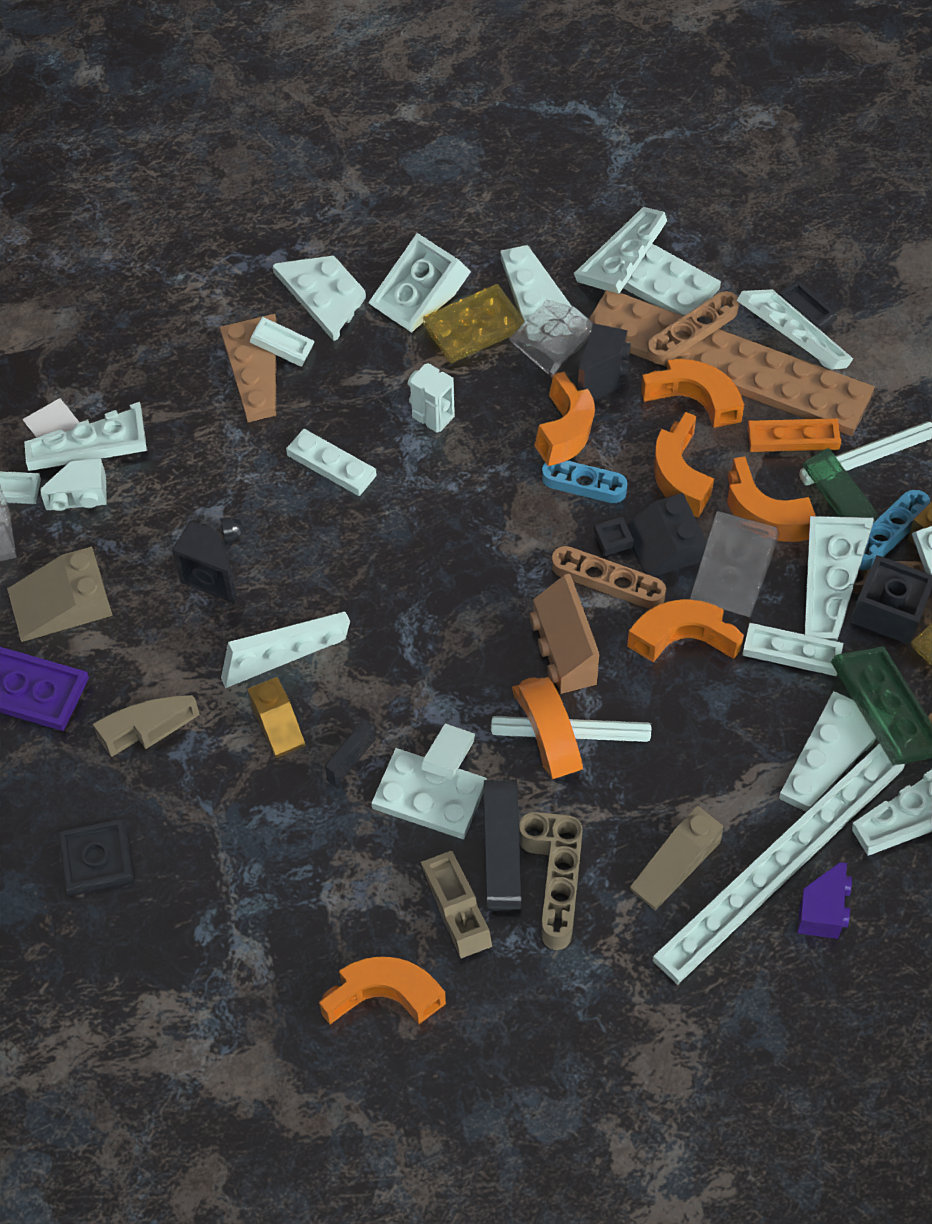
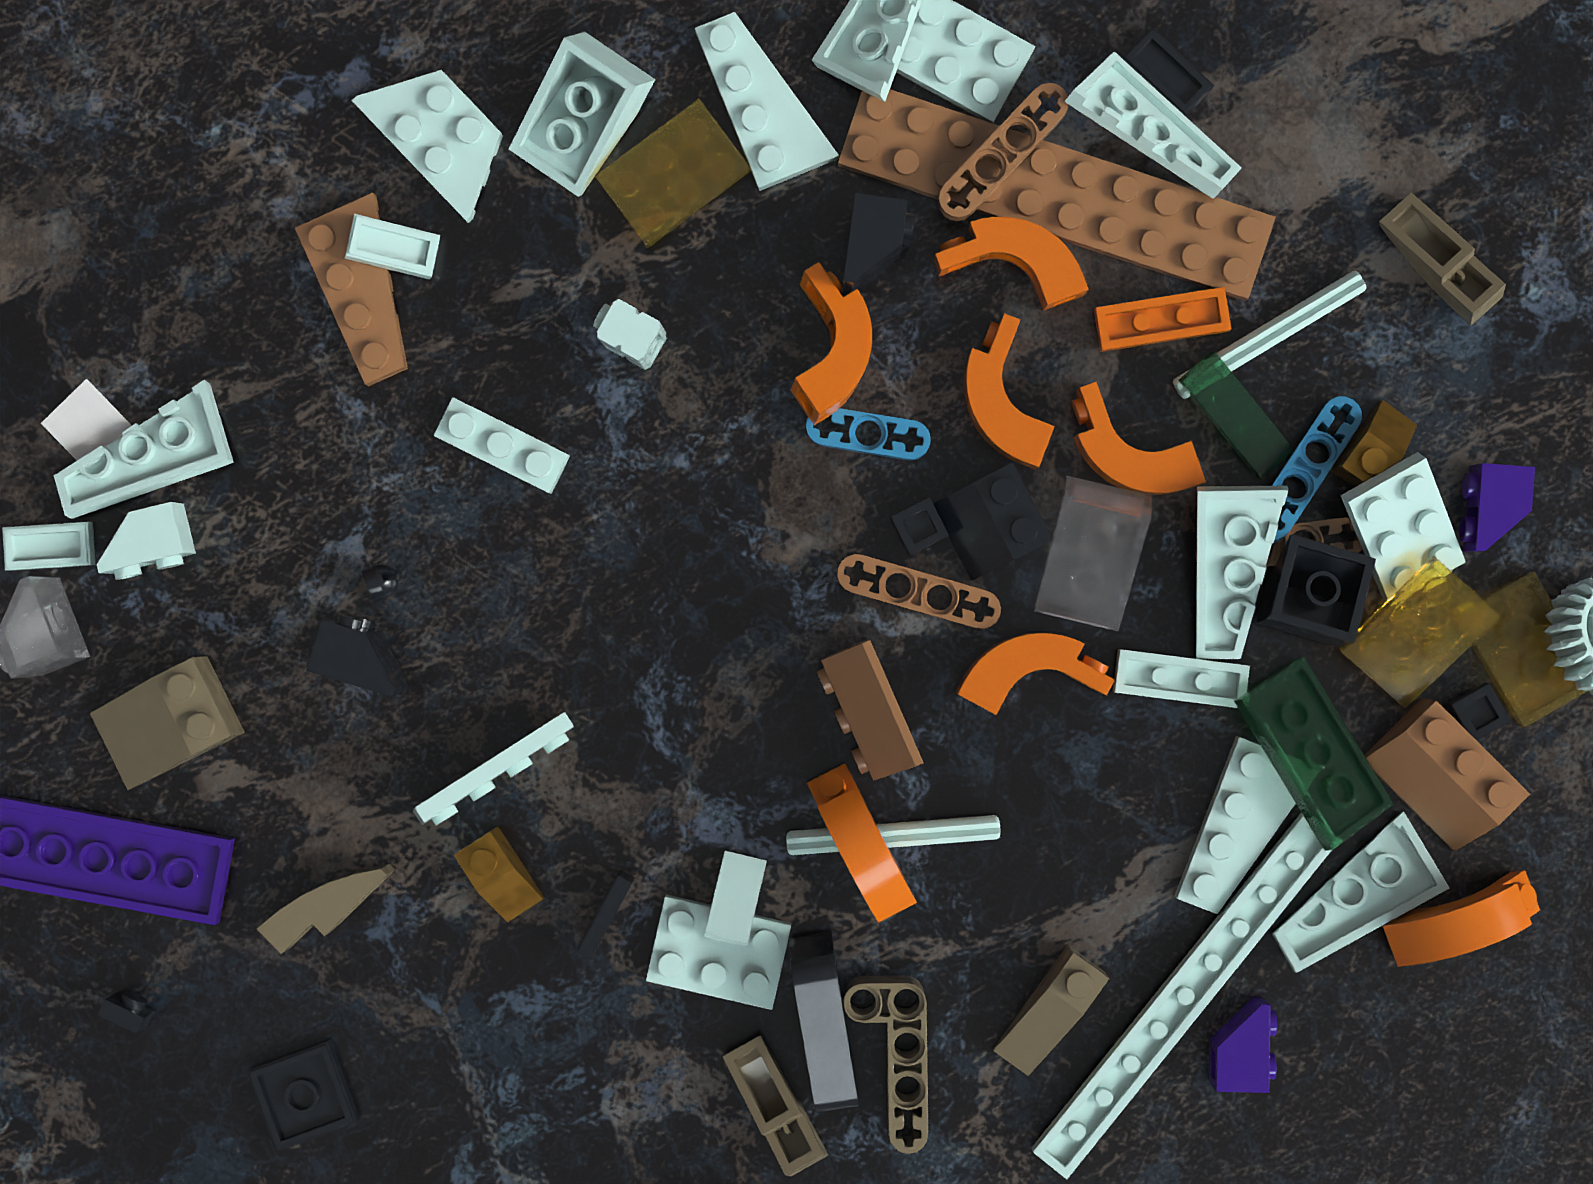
camera: 10 degrees left, 30 degrees up
(552, 335) = (794, 192): clear slope -> none

